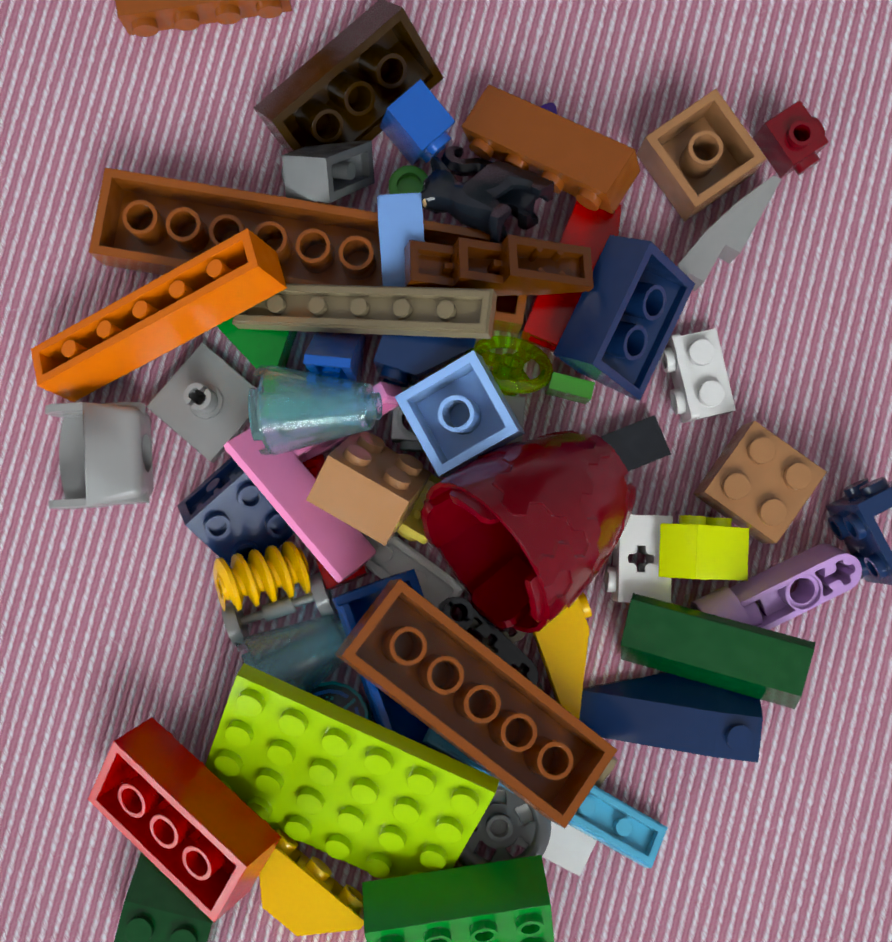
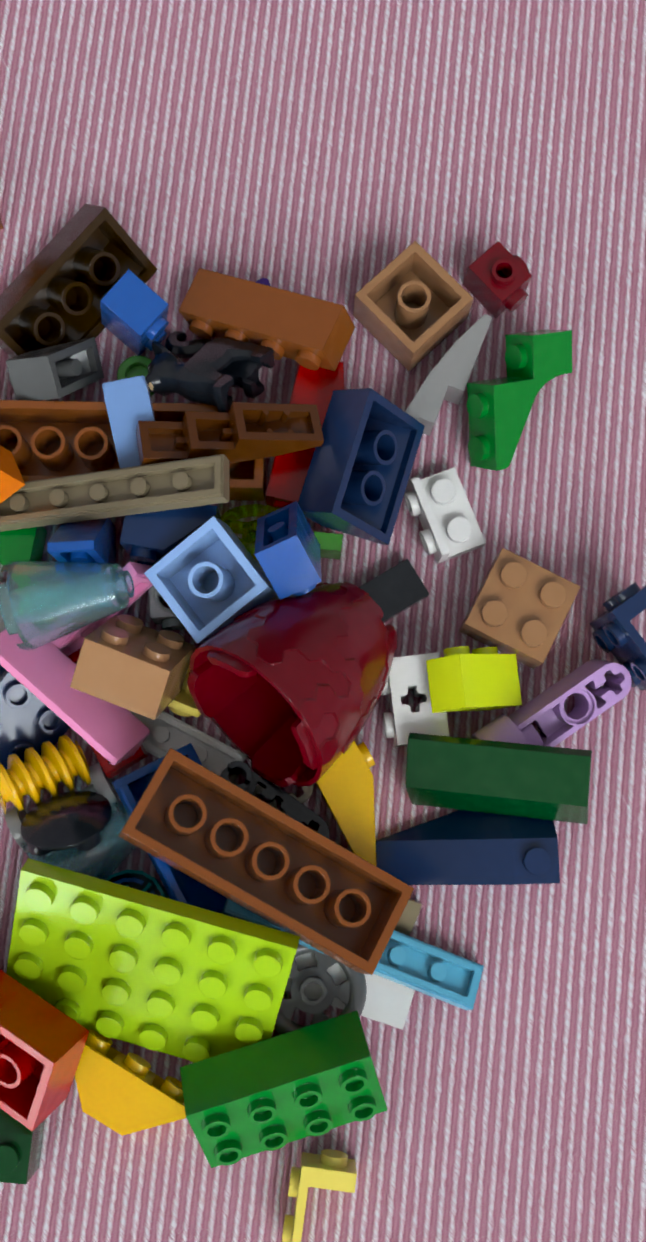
camera: 10 degrees left, 5 degrees down
(283, 630) = (66, 822): none -> black dish
(542, 396) = (288, 551): none -> blue brick
(777, 271) = (502, 405): none -> green arch

